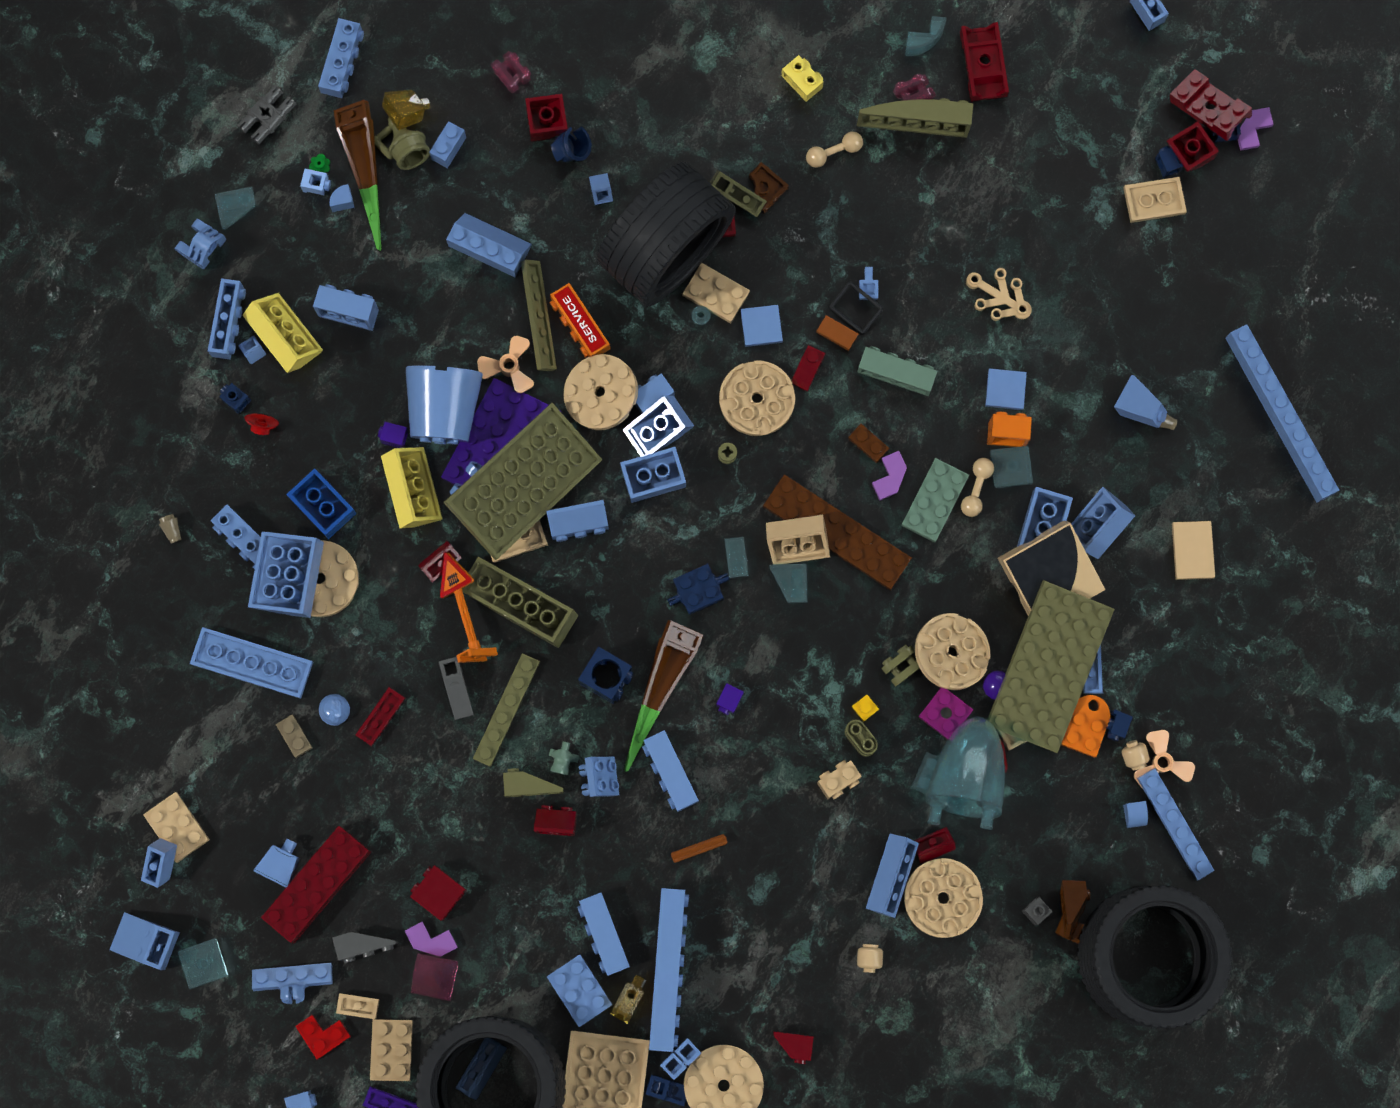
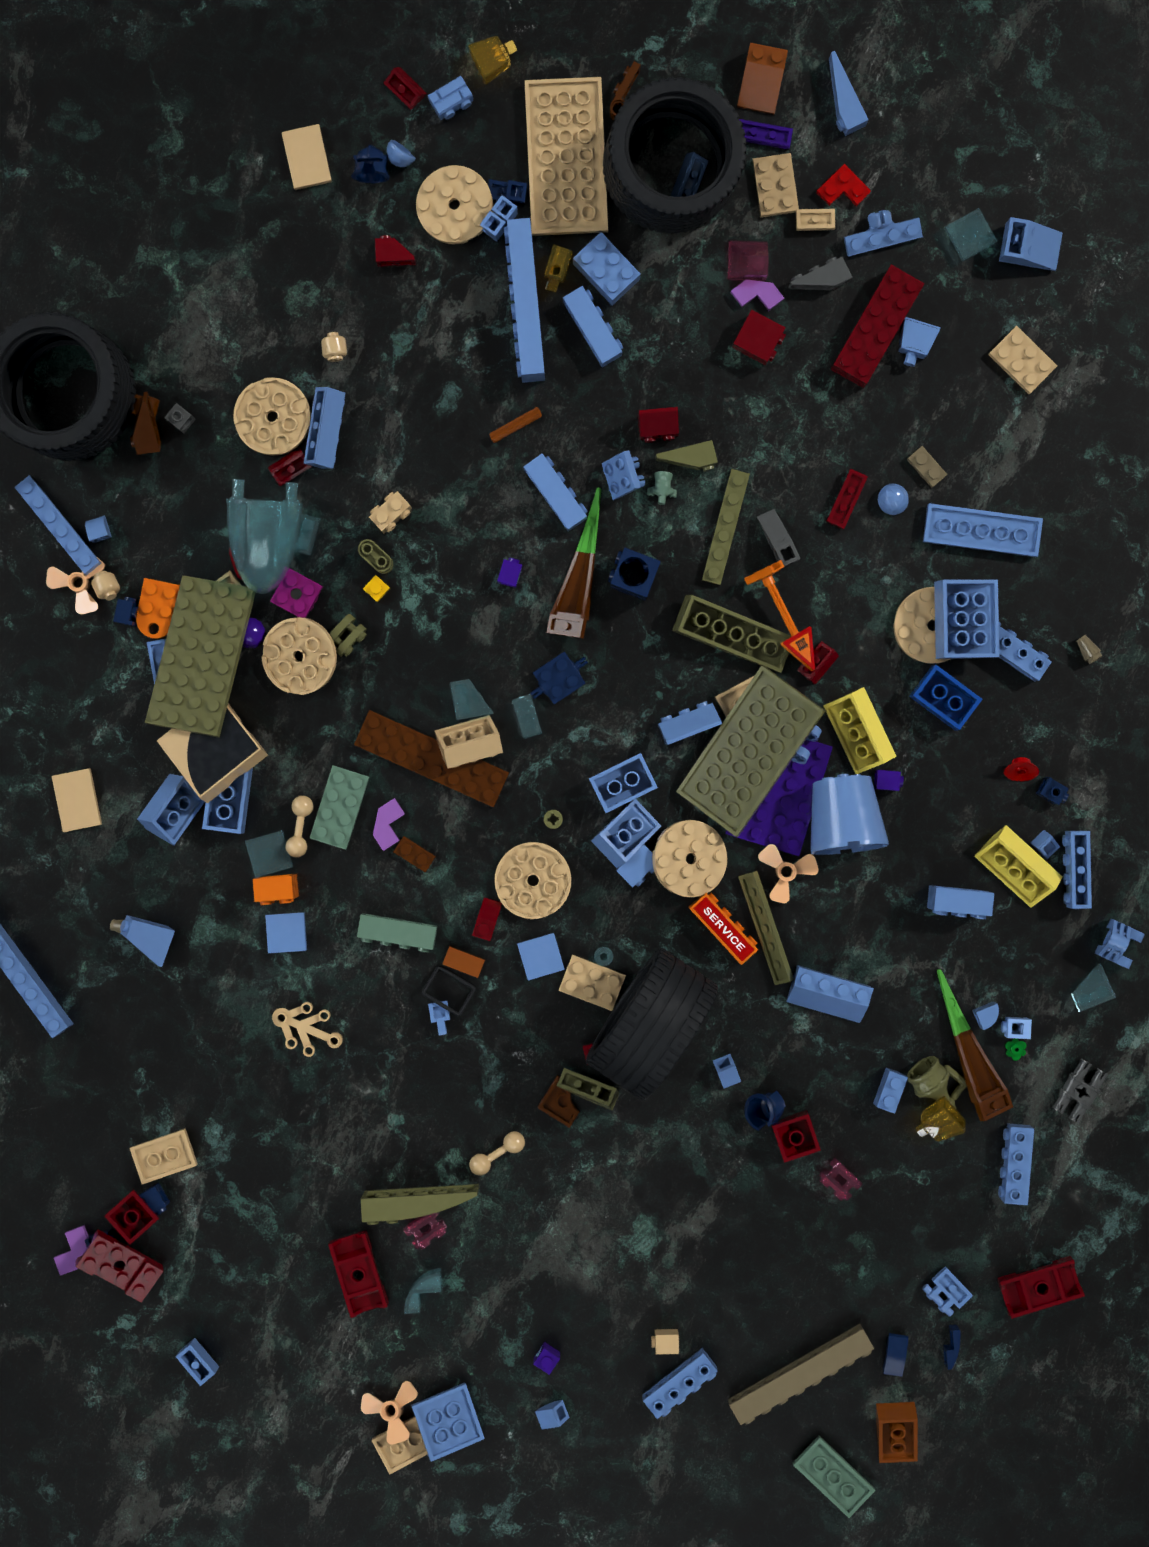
camera: 175 degrees right, 10 degrees up
(159, 862) = (1032, 319): medium blue brick -> none
(802, 78) = (541, 1224): light yellow brick -> none

